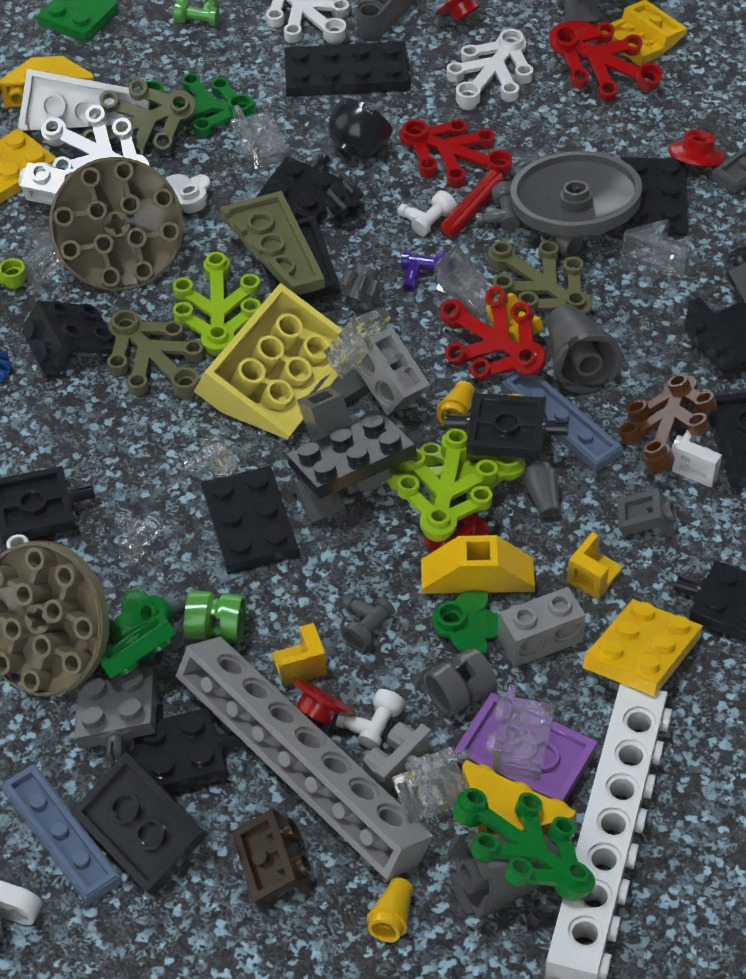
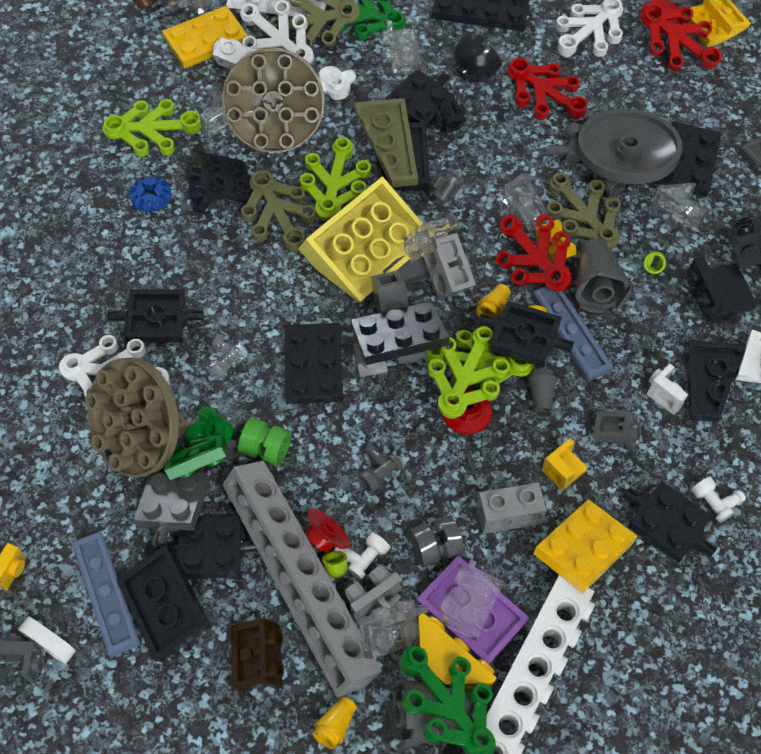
camera: 10 degrees right, 10 degrees up
(219, 458) = (301, 310): clear piece -> none
(301, 661) = (321, 491): yellow panel -> none
(343, 734) = (335, 563): none -> lime hinge
(414, 263) = (490, 177): dark purple piece -> none
(442, 205) = (524, 133): white piece -> none
(470, 204) = (547, 136): red axle -> none
(472, 621) = (461, 491): green plate -> none
(477, 565) = (475, 446): yellow slope -> none
(650, 320) = (661, 263): none -> lime hinge
(677, 392) = (666, 330): reddish brown plant -> none
(697, 149) = (733, 127): red piece -> none

